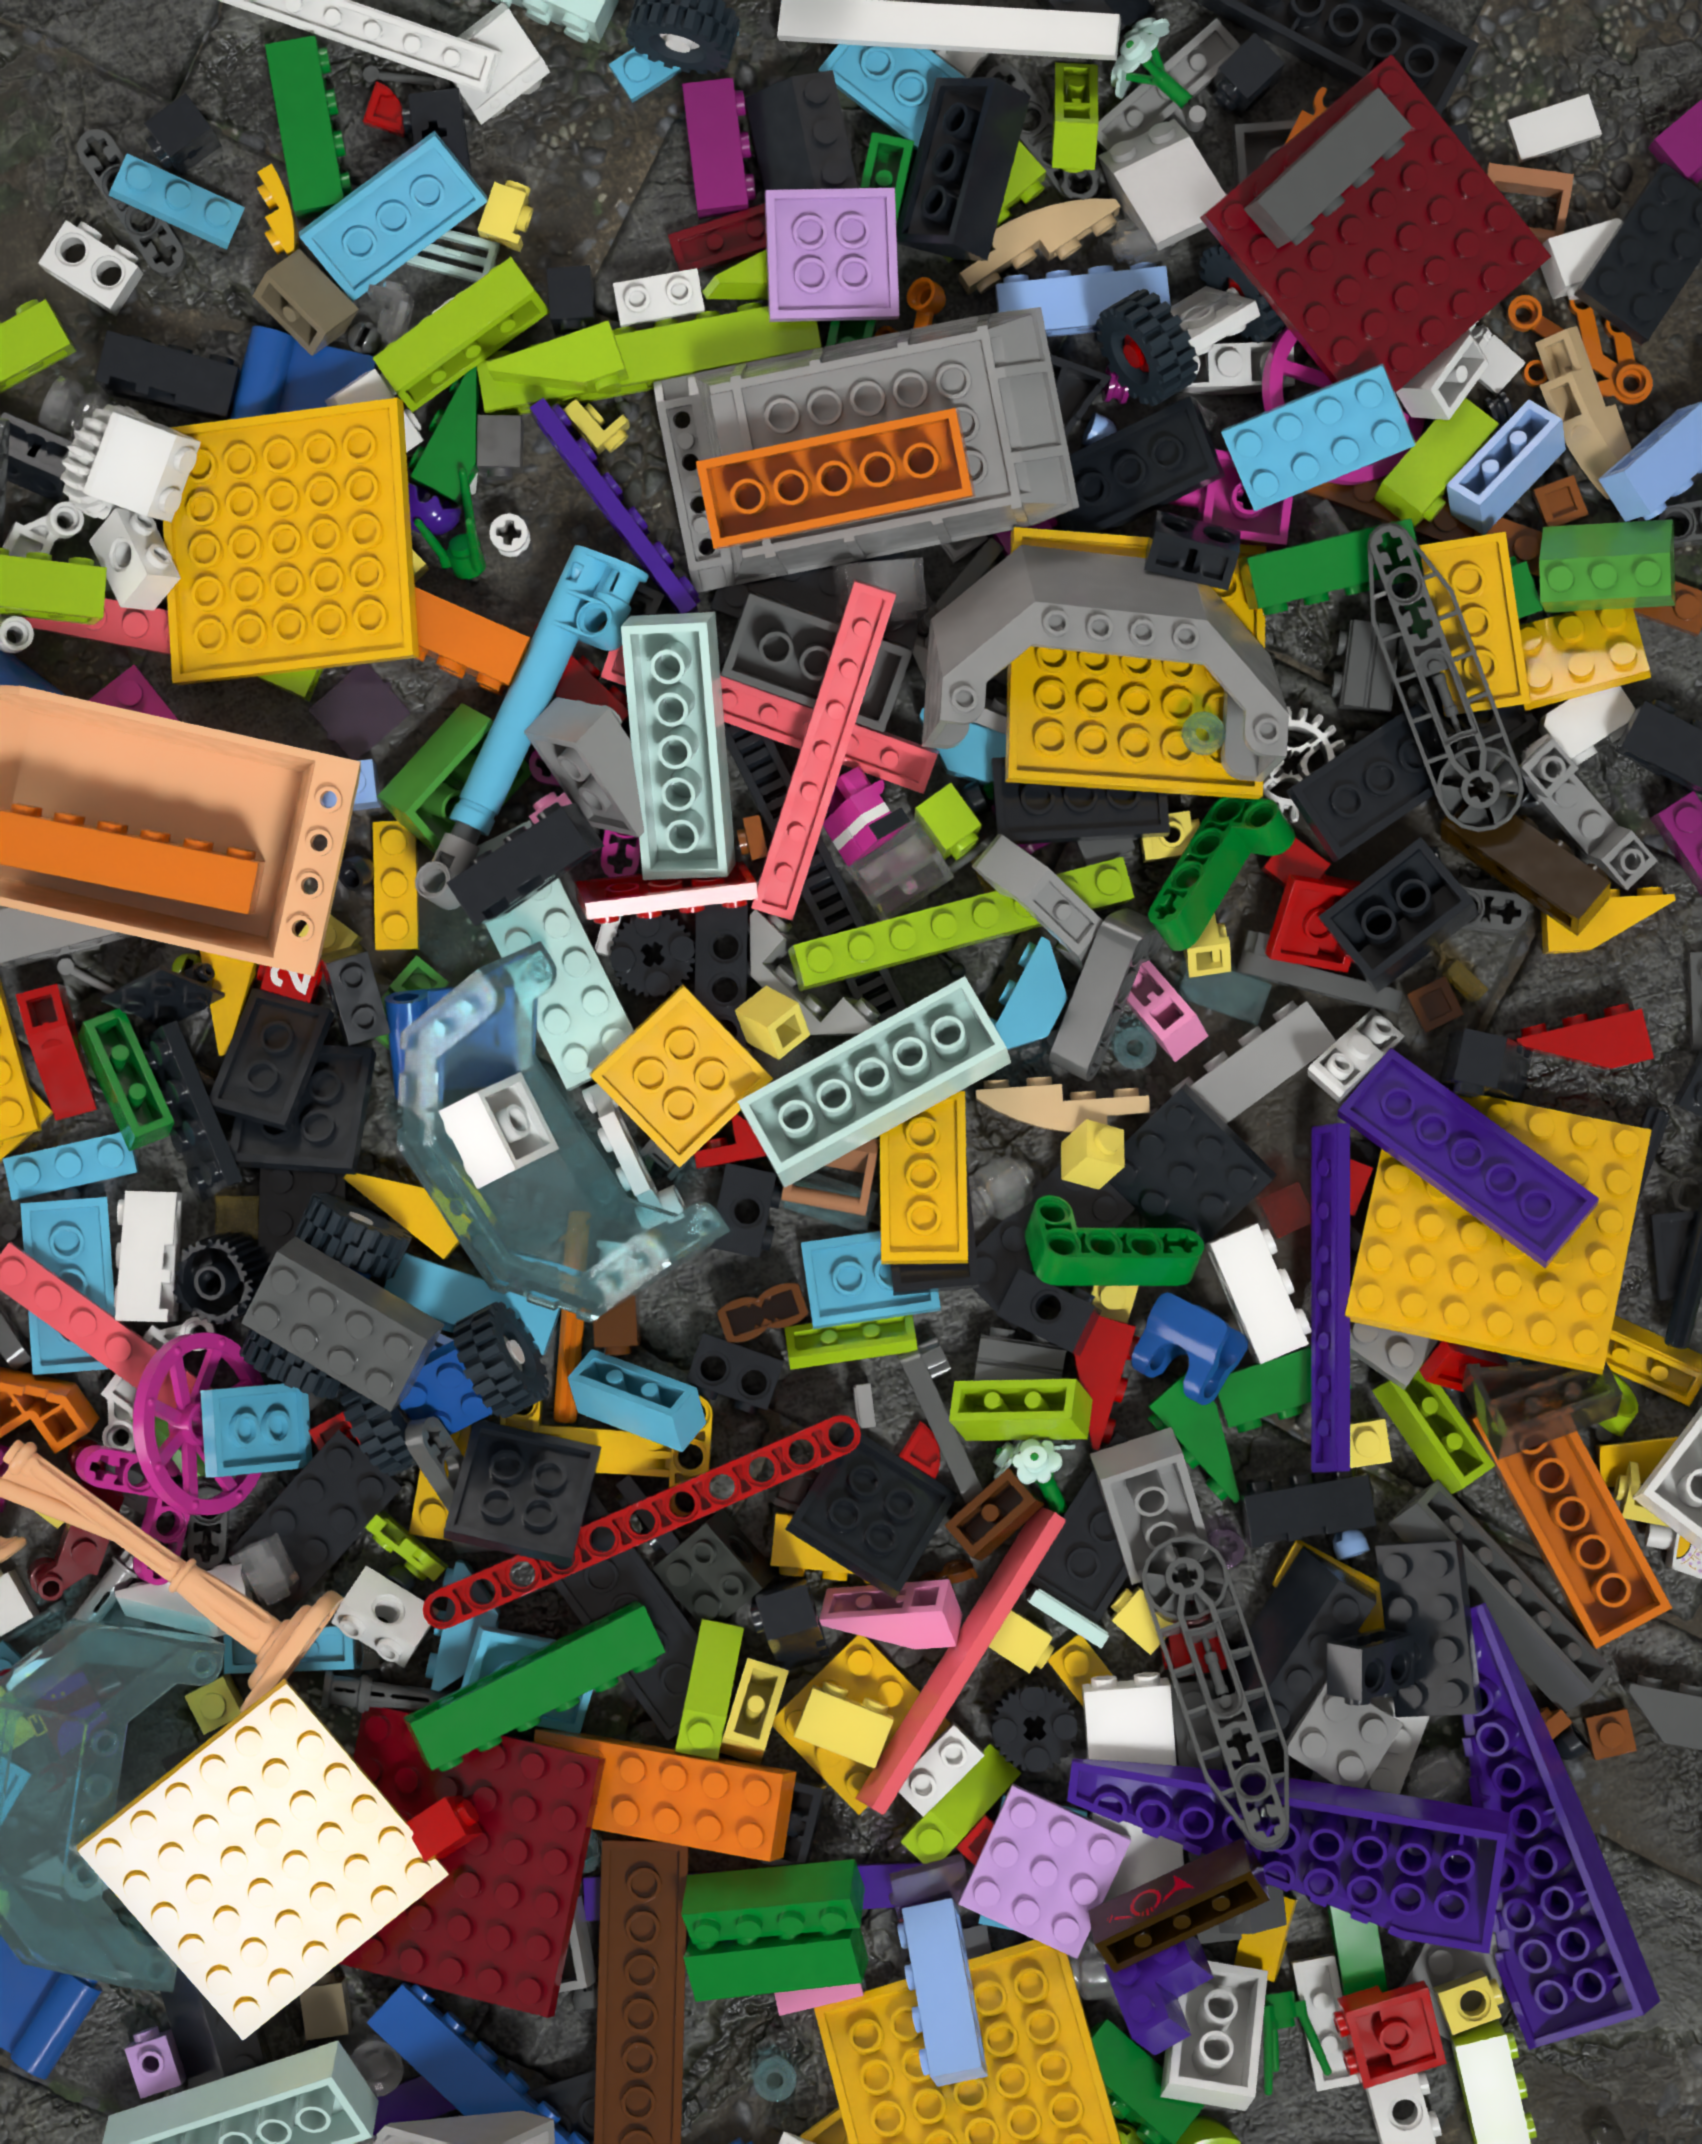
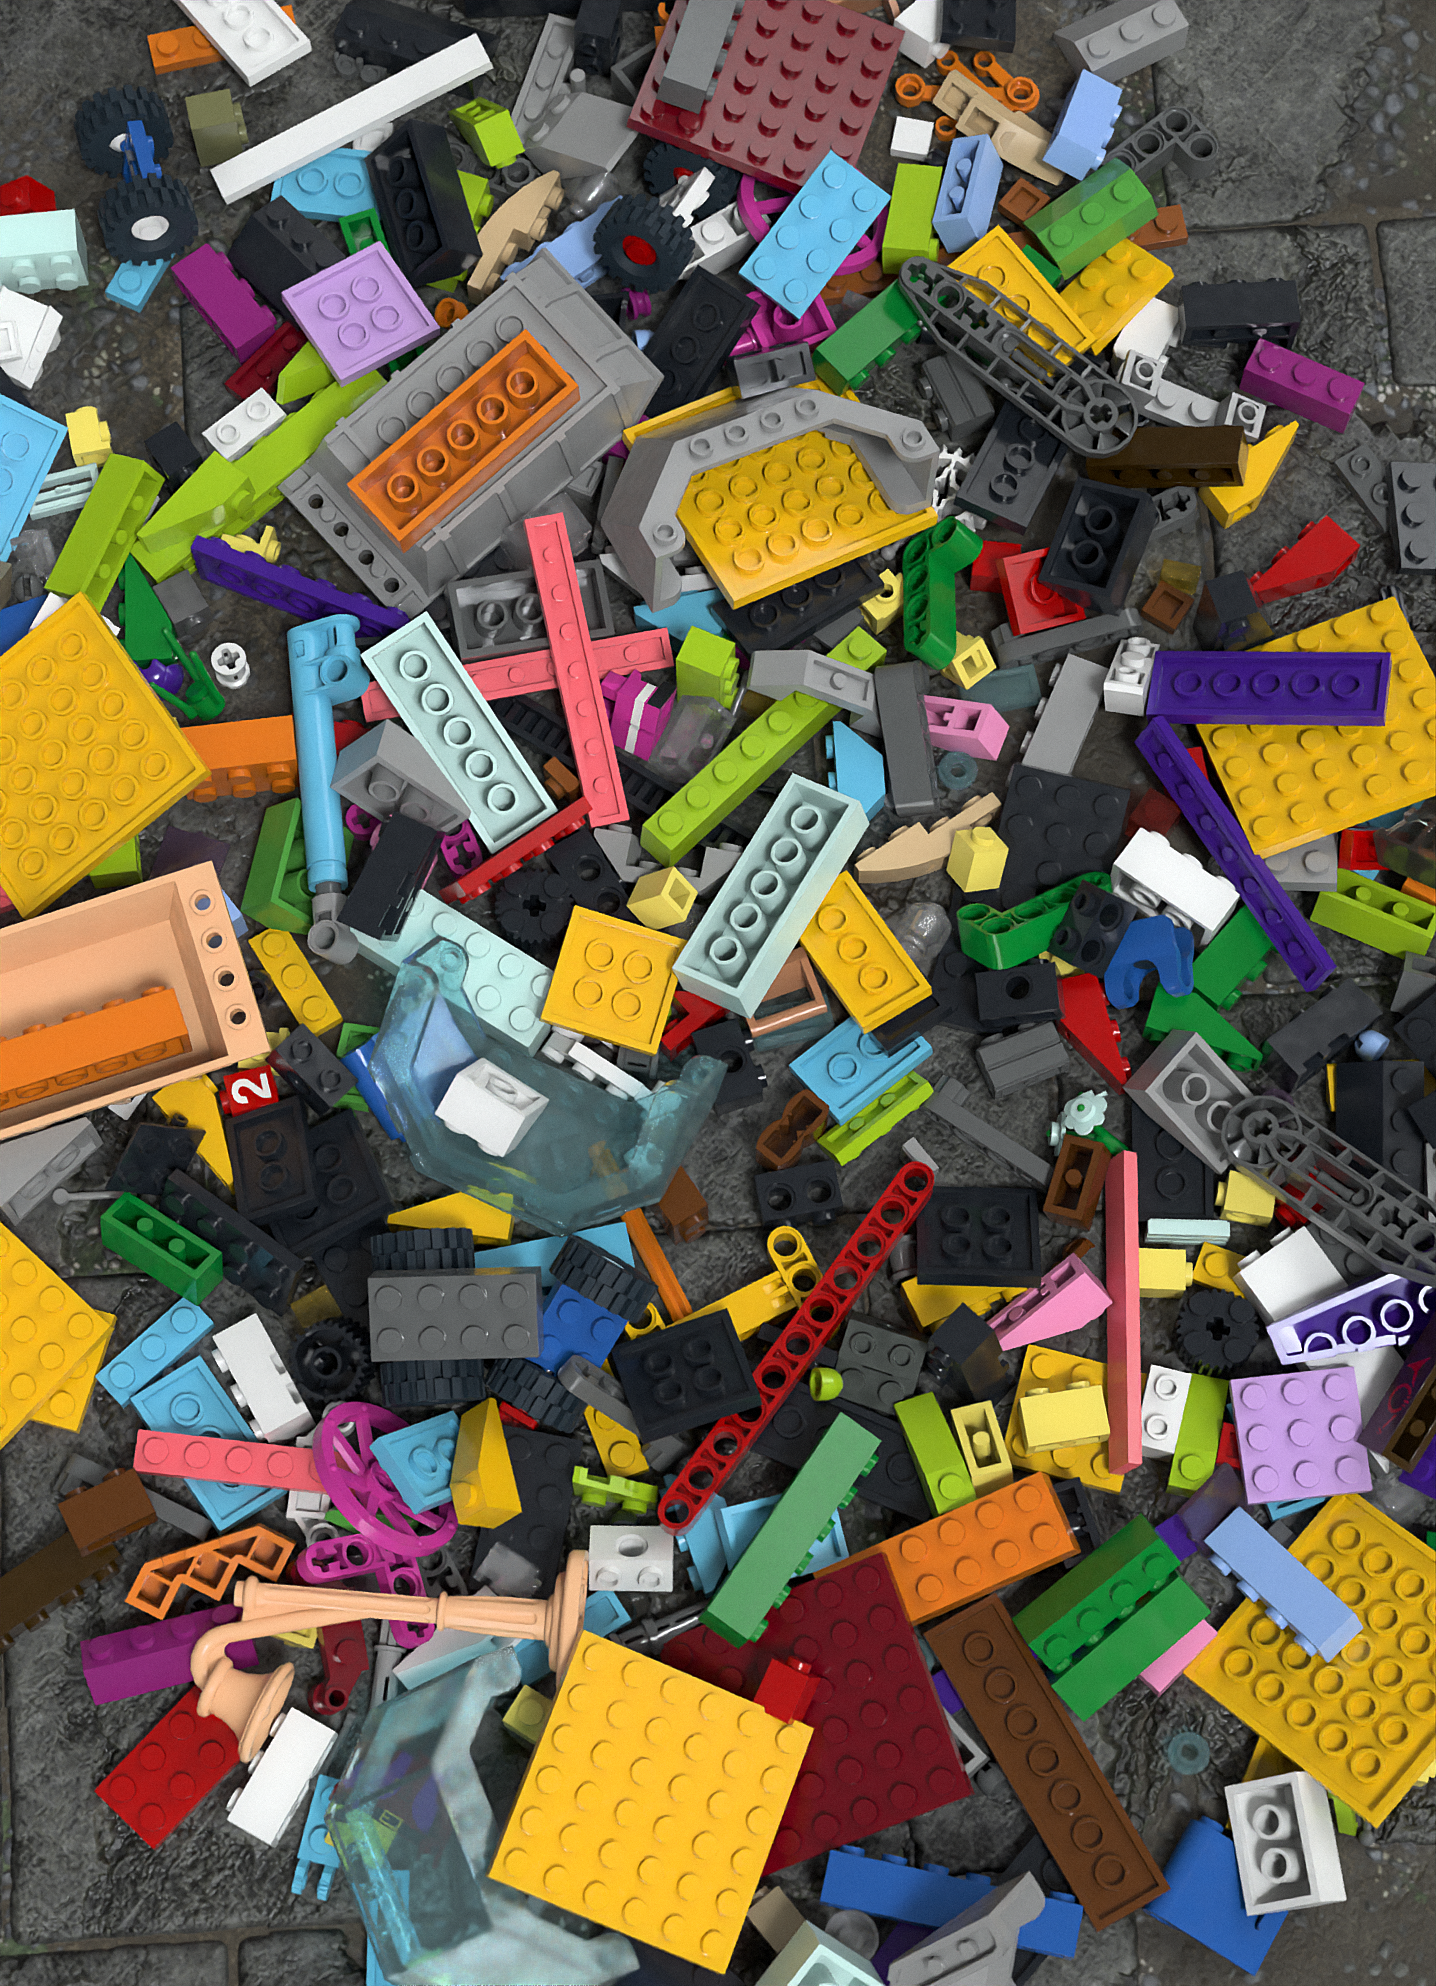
camera: 30 degrees left, 15 degrees down
(57, 1050) = (91, 1261): red slope -> none
(294, 1463) = (482, 1470): none -> yellow slope
(605, 937) = (487, 913): white tile -> none
(637, 1400) = (733, 1254): medium azure brick -> none
(651, 1564) = (825, 1384): none -> lime hinge
(922, 1451) = (987, 1172): red tile -> none
(1021, 1409) = (1045, 1084): lime brick -> none
(1138, 48) = (504, 55): light aqua plant -> none
(1152, 1292) = (1092, 929): none -> black brick
(1211, 724) = (866, 484): clear light blue plate -> none
(1369, 1443) = (1342, 953): light yellow brick -> none
(1448, 378) = (884, 152): white hinge -> none

